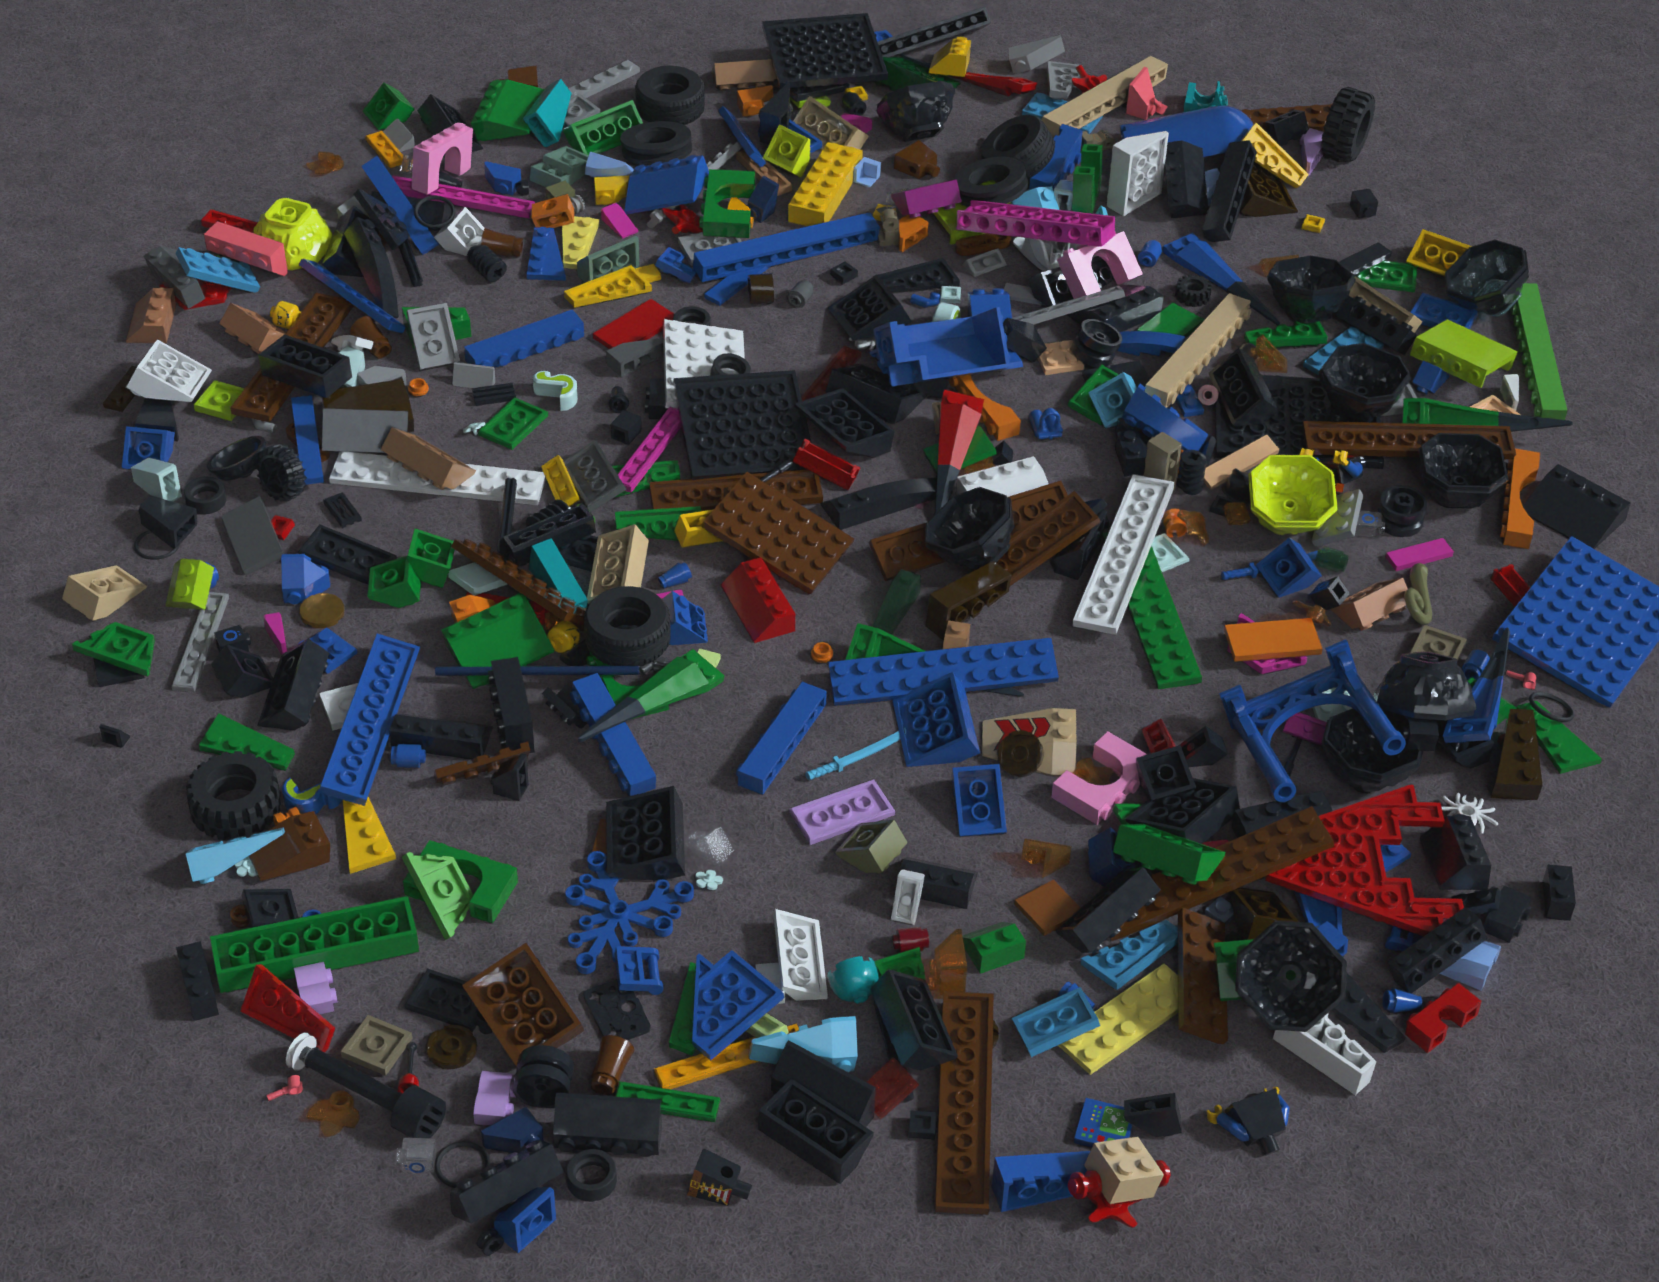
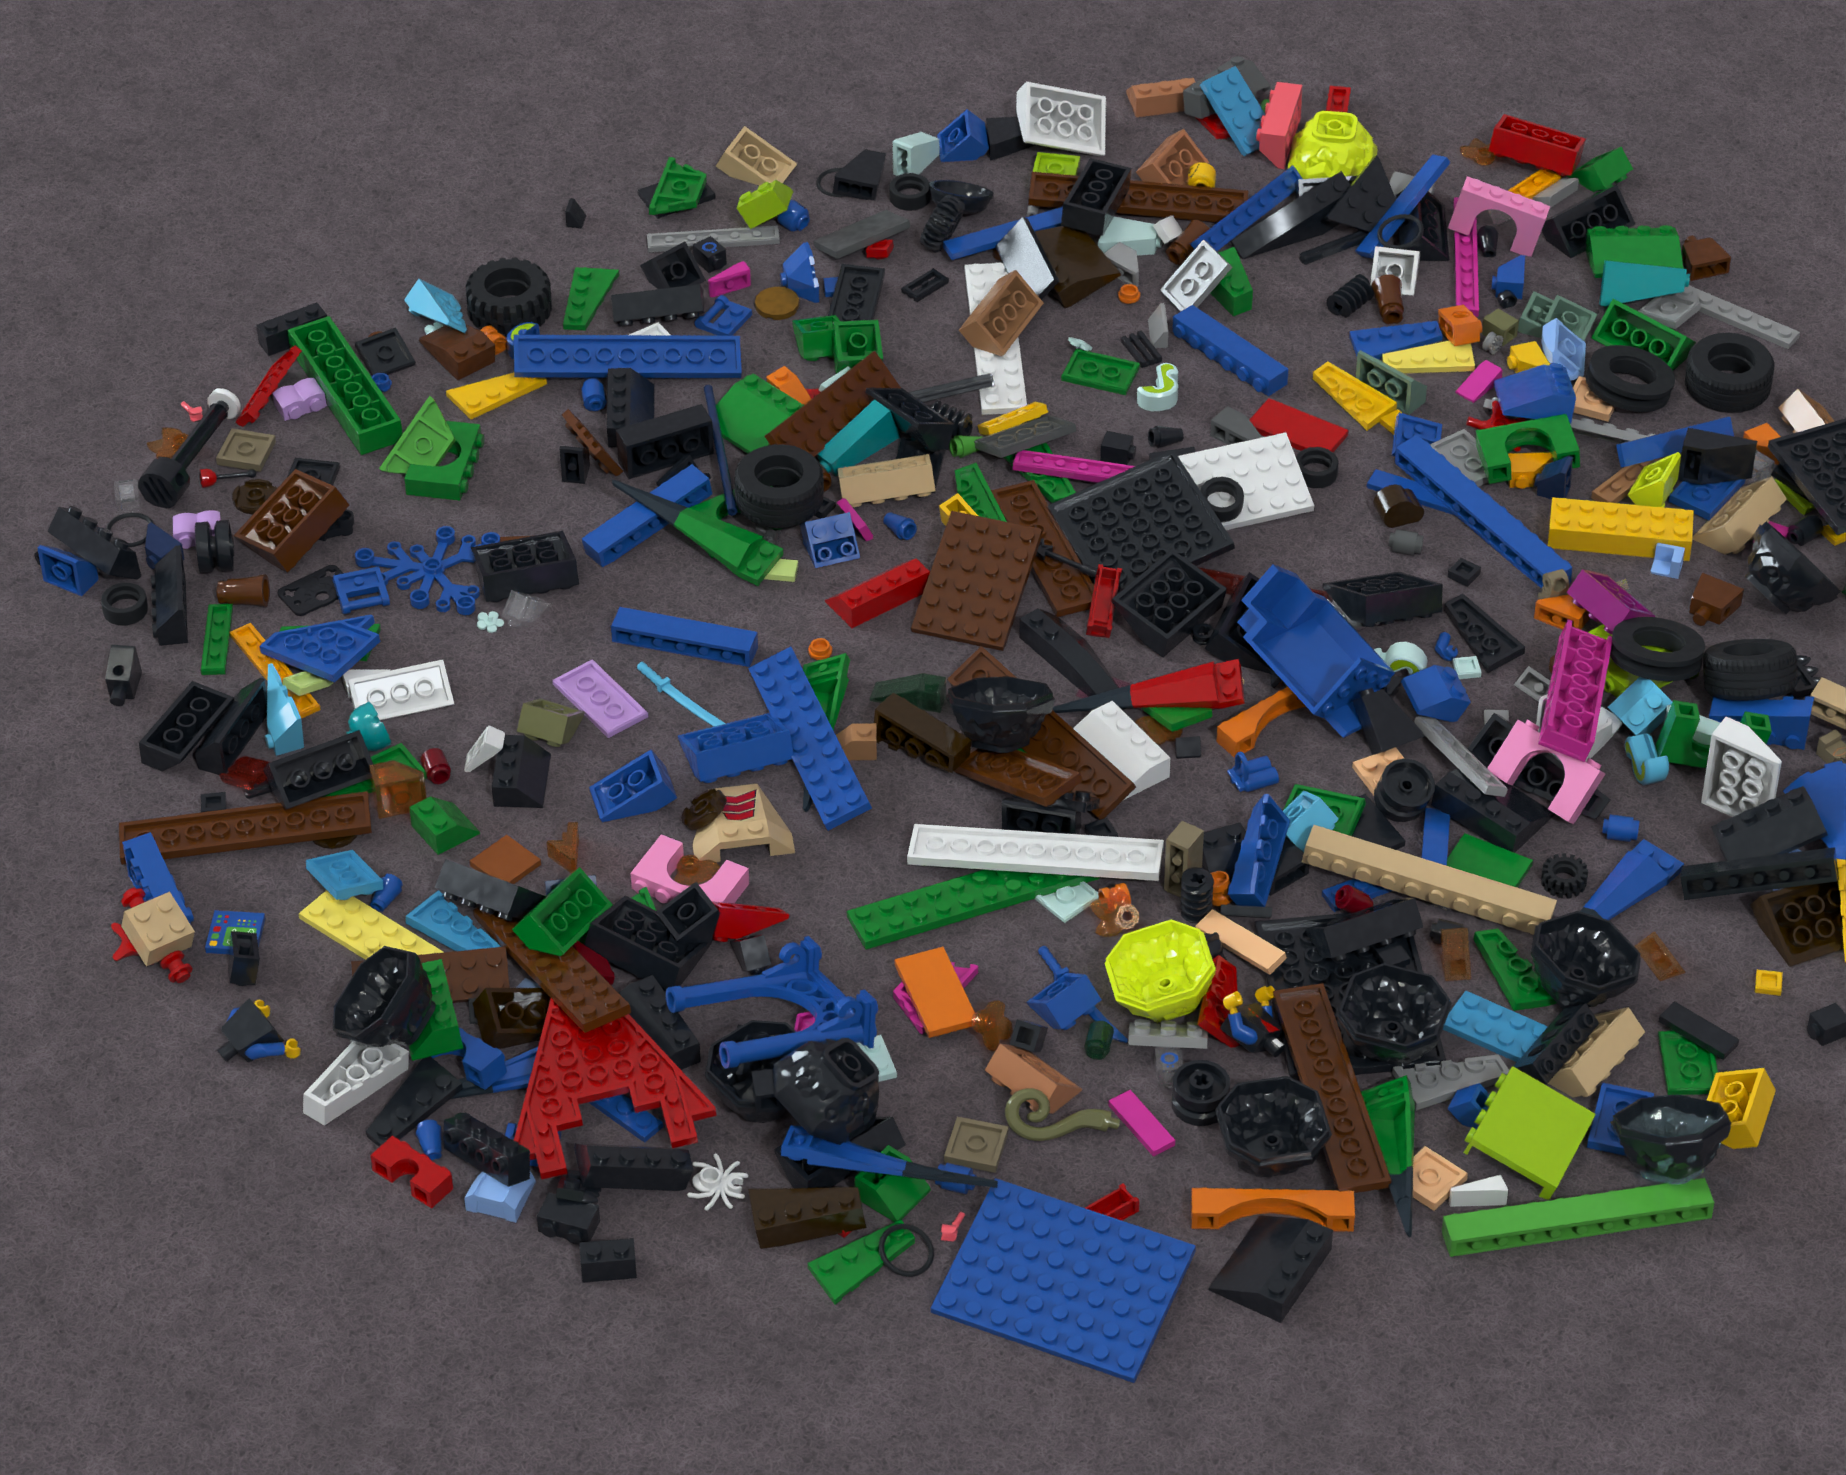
camera: 80 degrees right, 0 degrees up
(350, 126) = (1537, 145): none -> red brick

